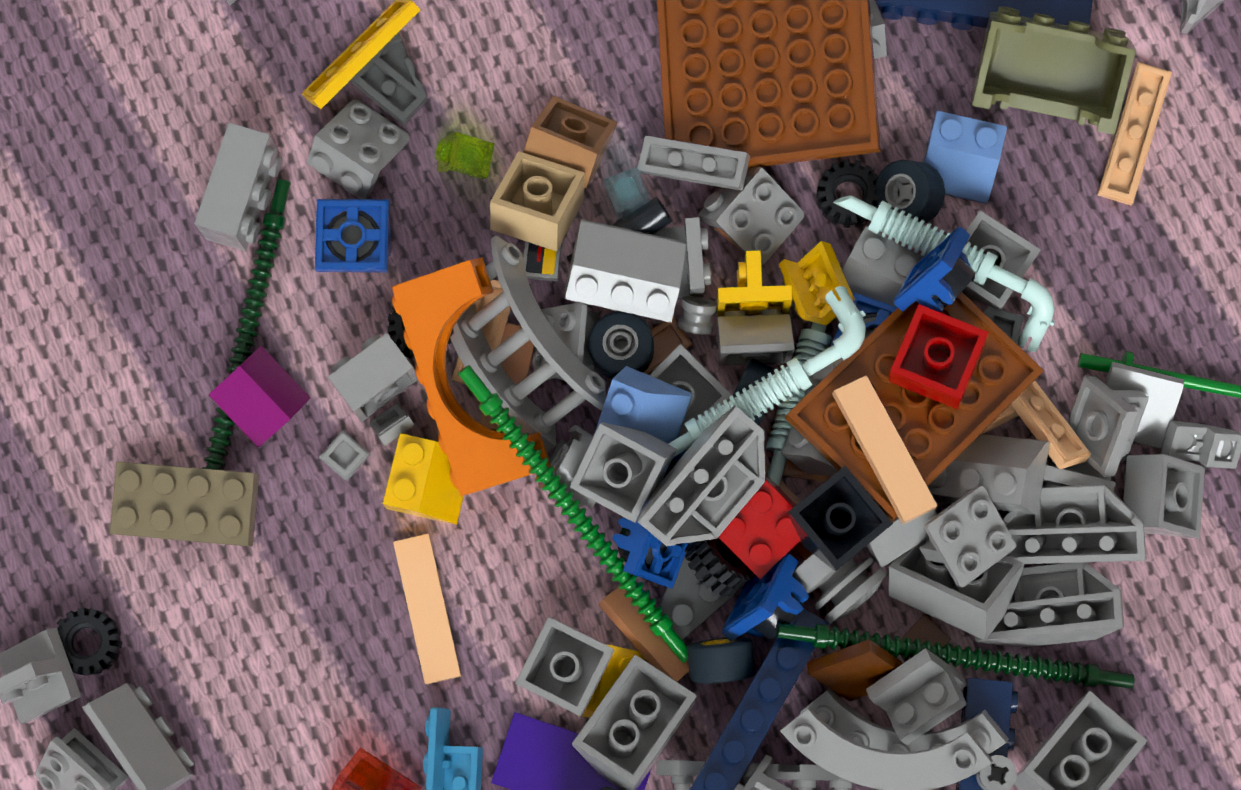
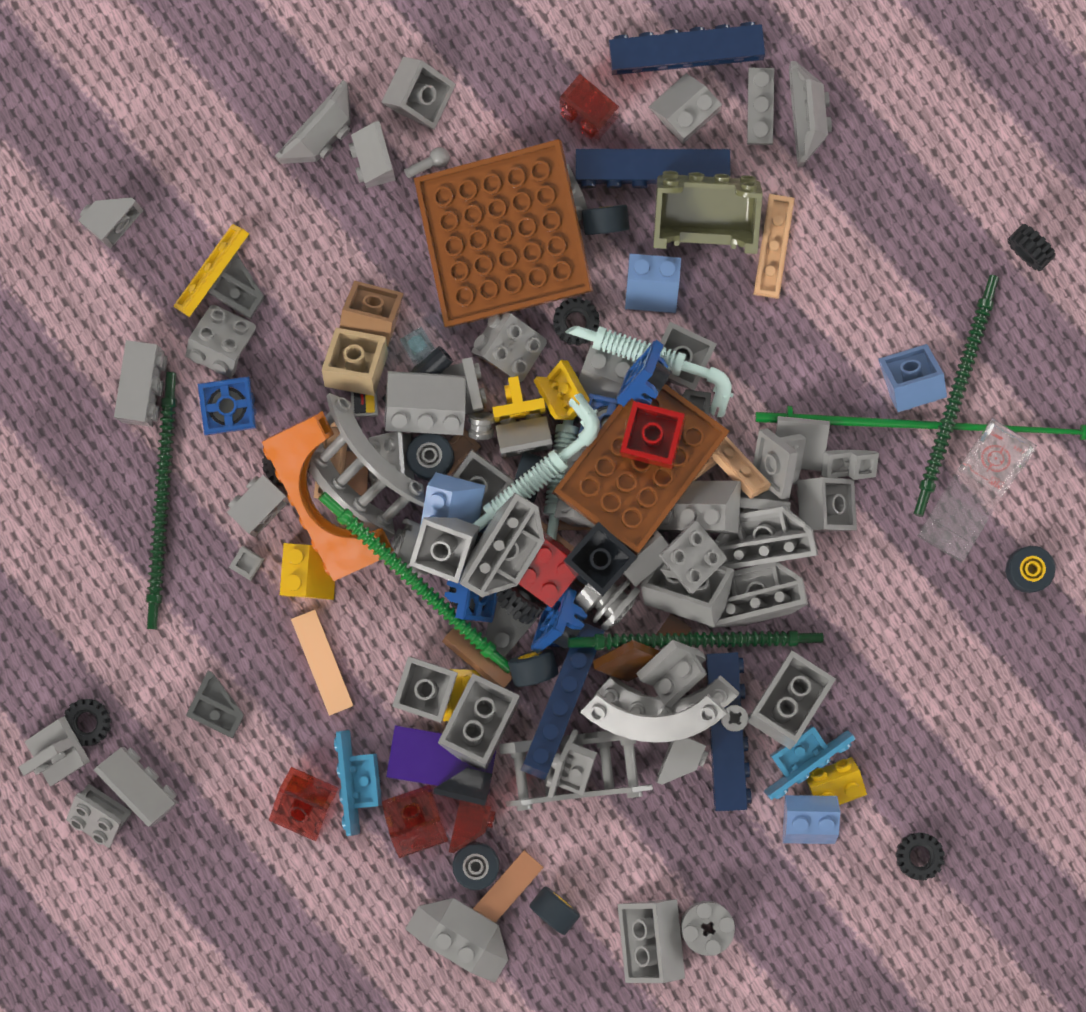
camera: 10 degrees left, 5 degrees up
(184, 503) = (139, 615): dark tan plate -> none
(259, 396) = (180, 531): magenta slope -> none
(269, 648) = (215, 707): none -> dark grey wing
(391, 424) = (276, 536): light grey tile -> none
(464, 155) = (297, 334): clear neon green bracket -> none
(693, 163) = (462, 317): light grey plate -> none
(884, 449) = (624, 506): light nougat tile -> none
(909, 62) = (605, 219): none -> black wheel
(911, 188) = (619, 313): black wheel -> none

